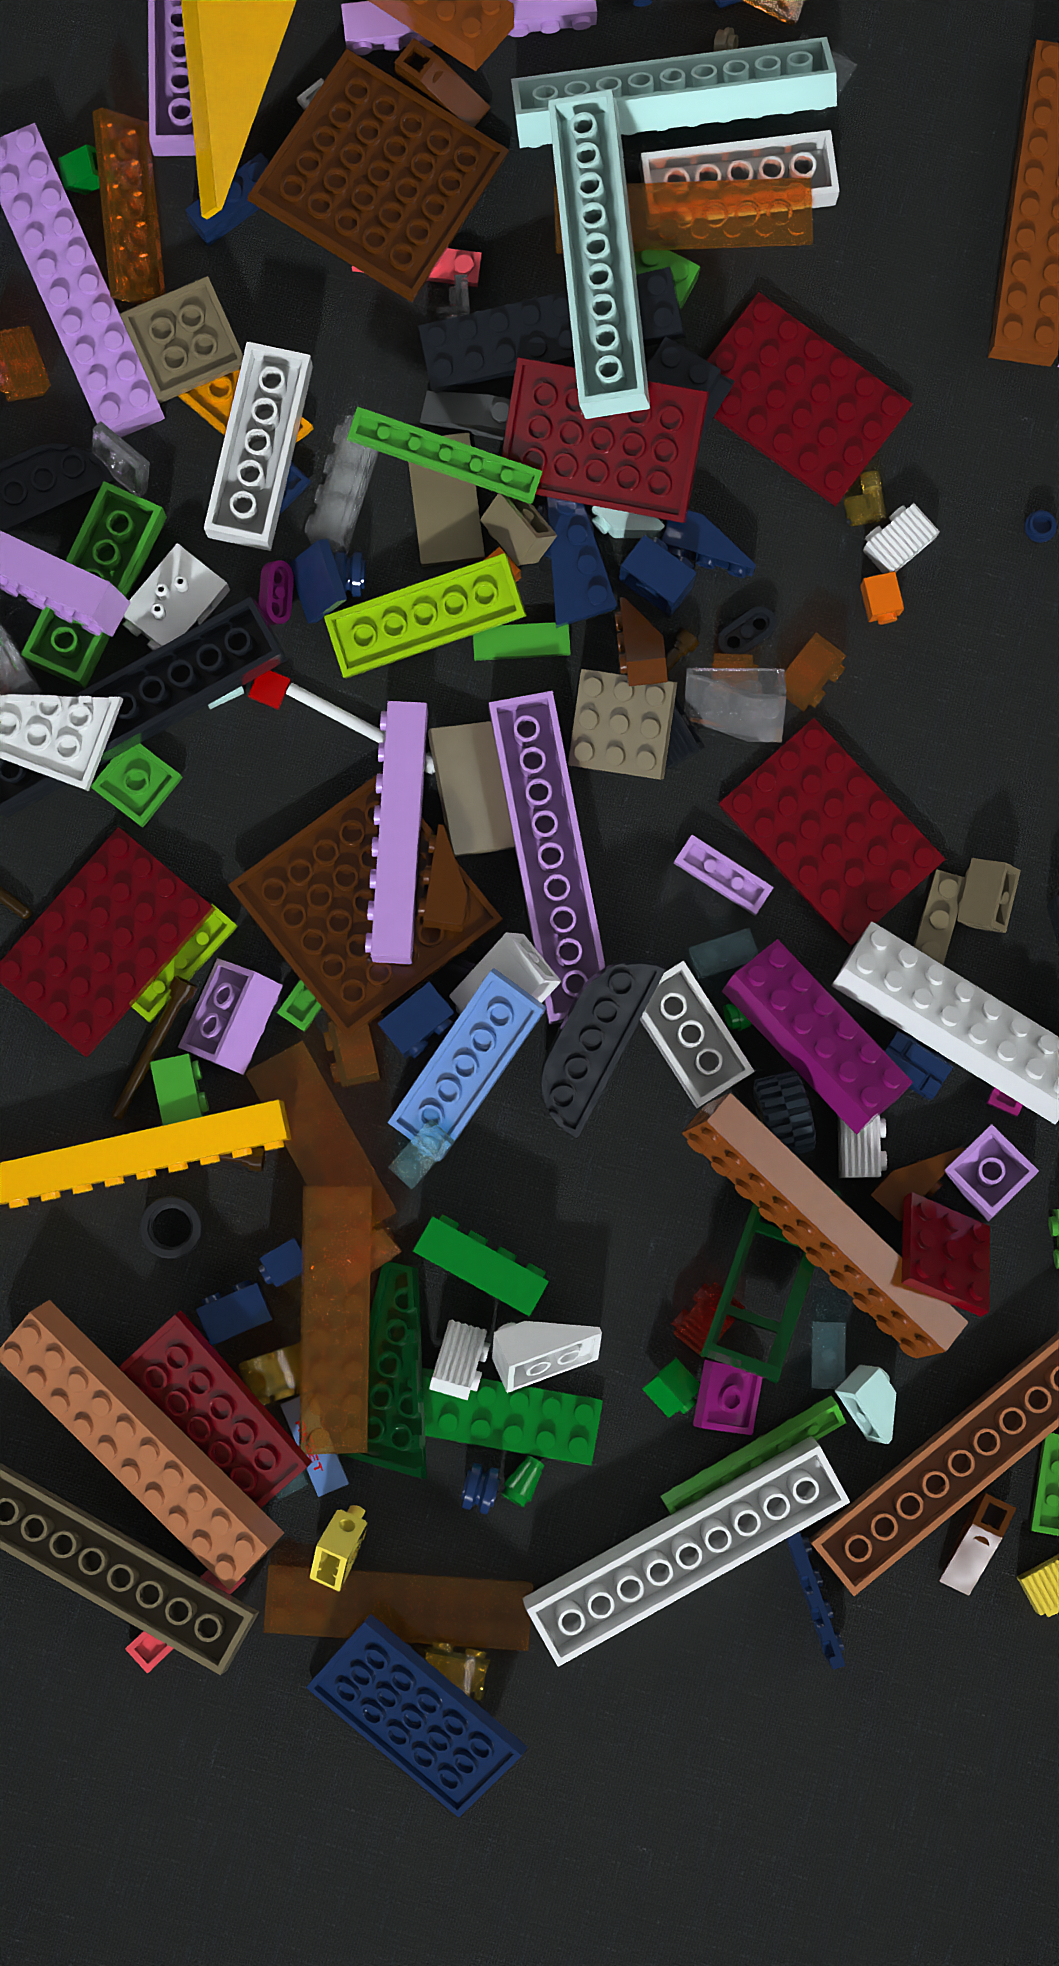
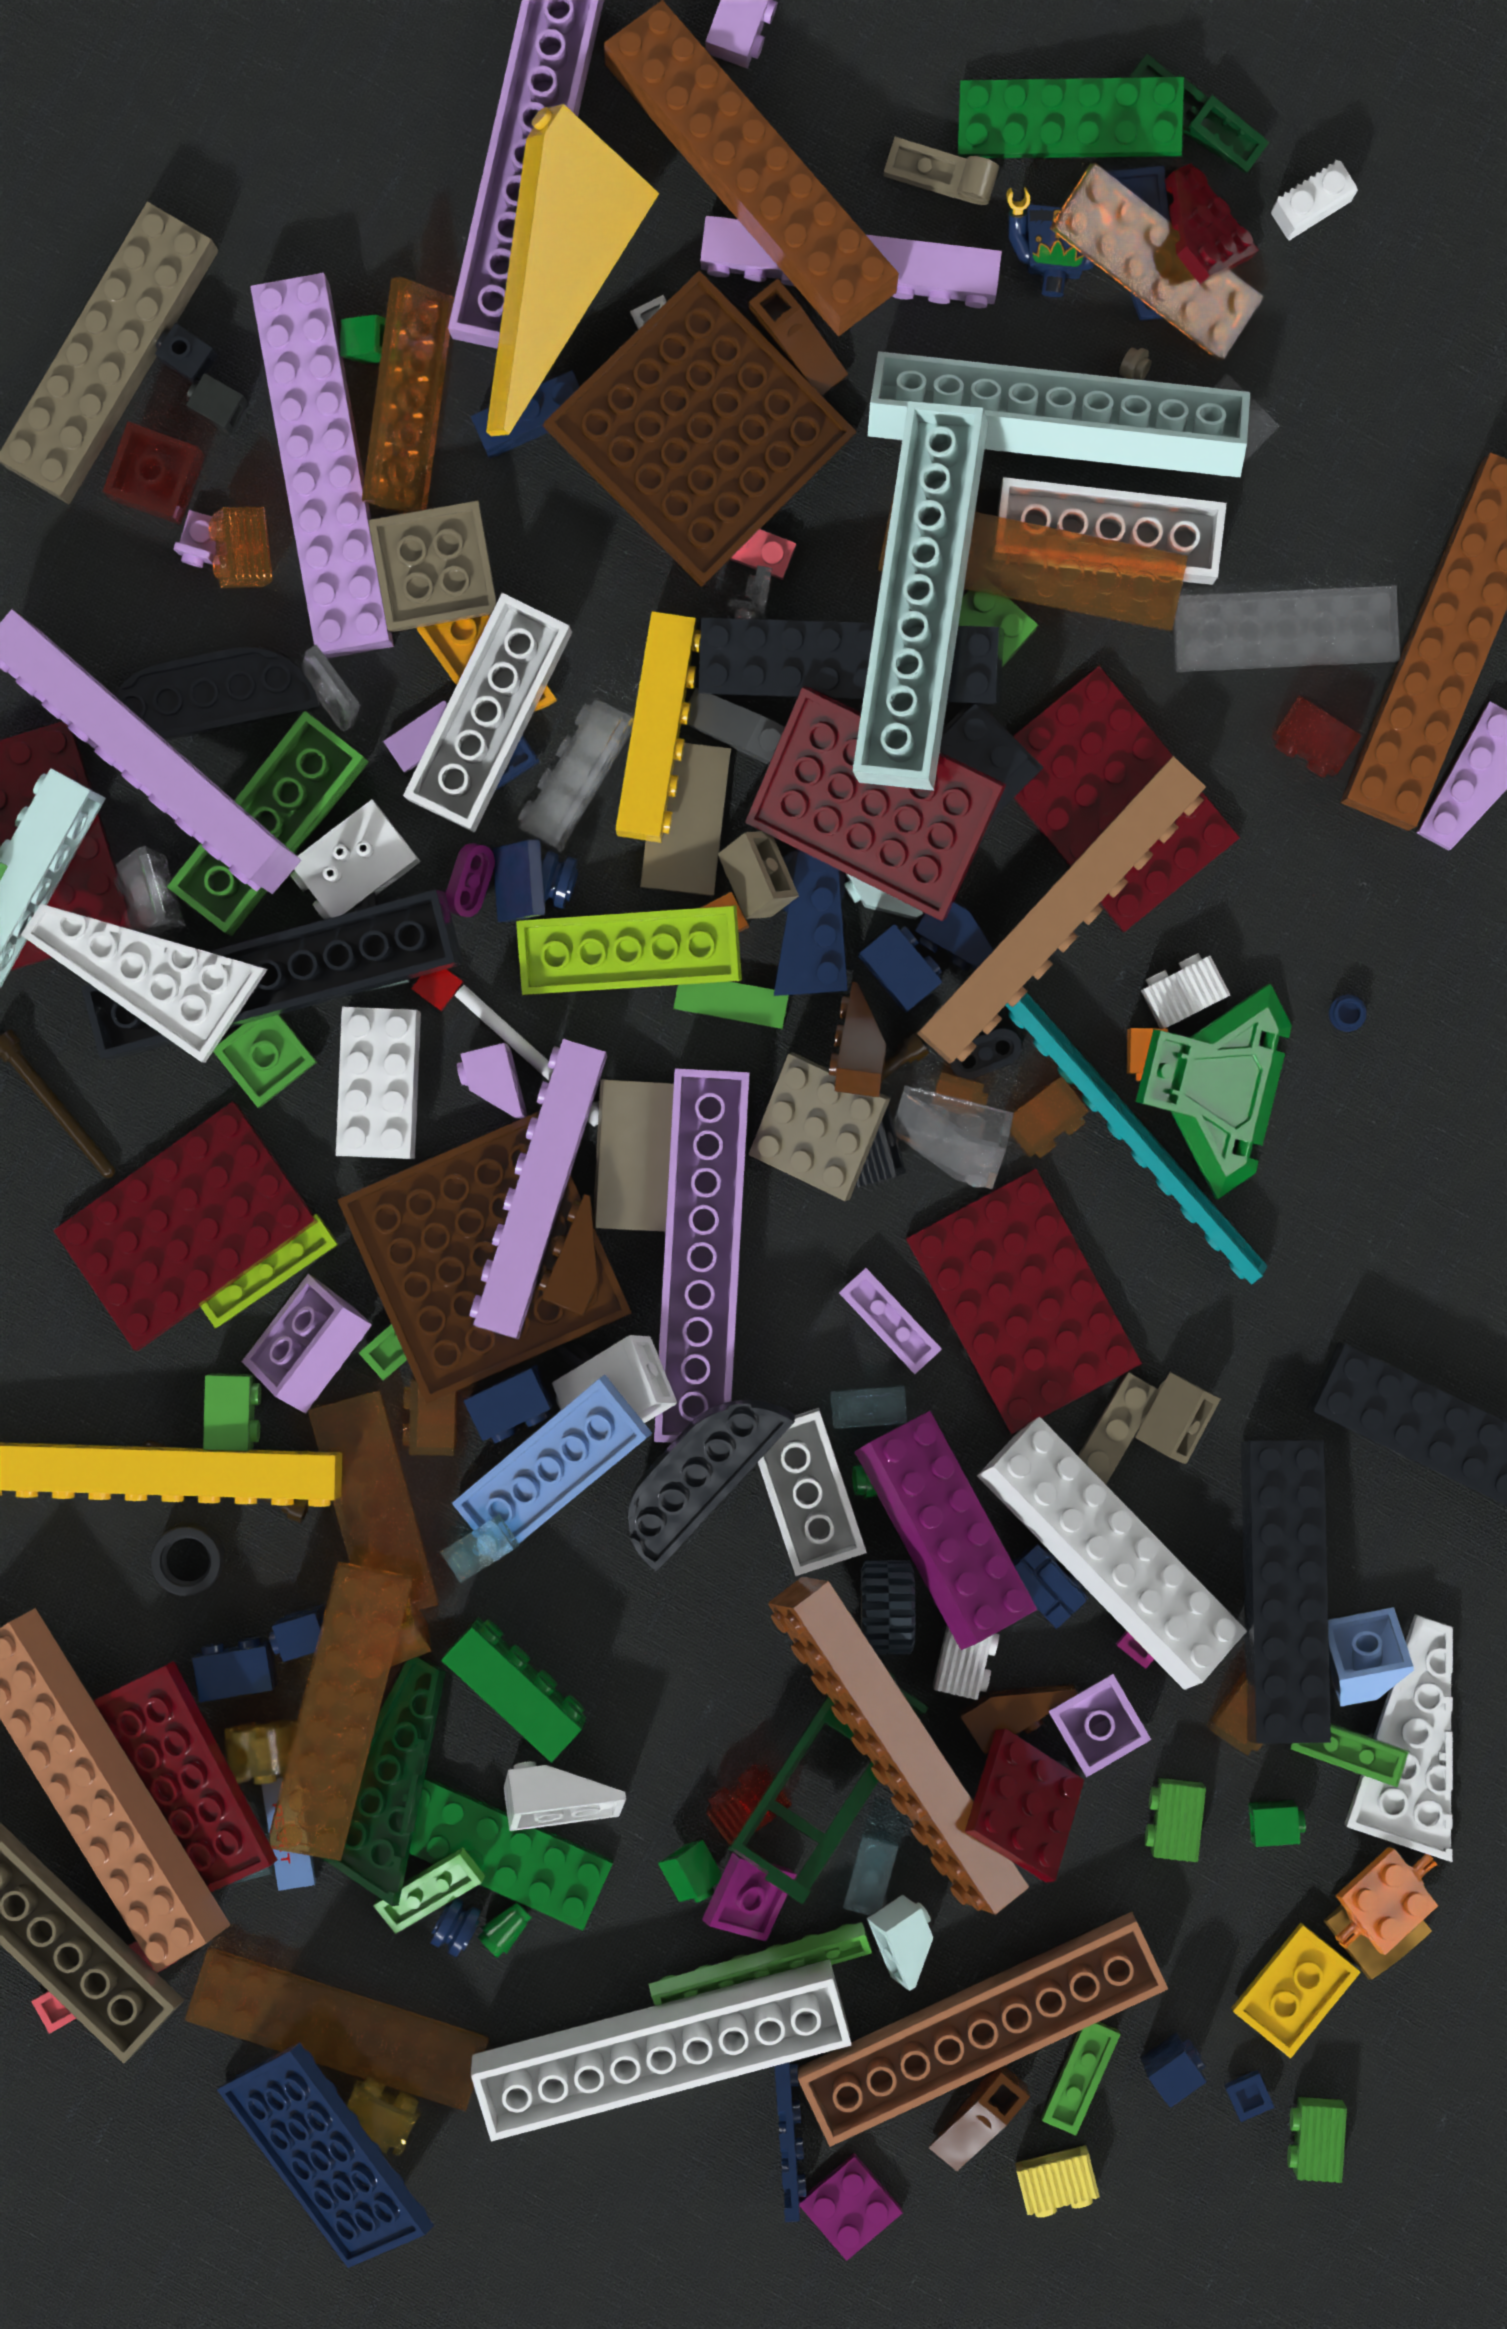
camera: 20 degrees right, 5 degrees up
(180, 993) = (258, 1305): dark brown piece -> none
(198, 490) = (411, 741): none -> lavender tile
(239, 780) = (378, 1082): none -> white brick
(336, 750) = (493, 1077): none -> lavender slope
(339, 1547) = (288, 1952): light yellow torso -> none
(400, 400) = (657, 727): none -> yellow brick
(444, 455) = (692, 778): bright green plate -> none
(450, 1461) = (431, 1890): none -> bright green plate
(458, 1360) = (466, 1783): white brick -> none
(780, 493) = (1062, 910): none -> medium nougat brick
(867, 507) = (1160, 943): clear yellow piece -> none
(884, 1651) = (850, 2206): none -> magenta plate
(902, 678) = (1144, 1146): none -> teal plate
(906, 226) = (1286, 628): none -> clear plate
(951, 609) = (1220, 1085): none -> green plate
(953, 306) = (1315, 737): none -> clear red brick

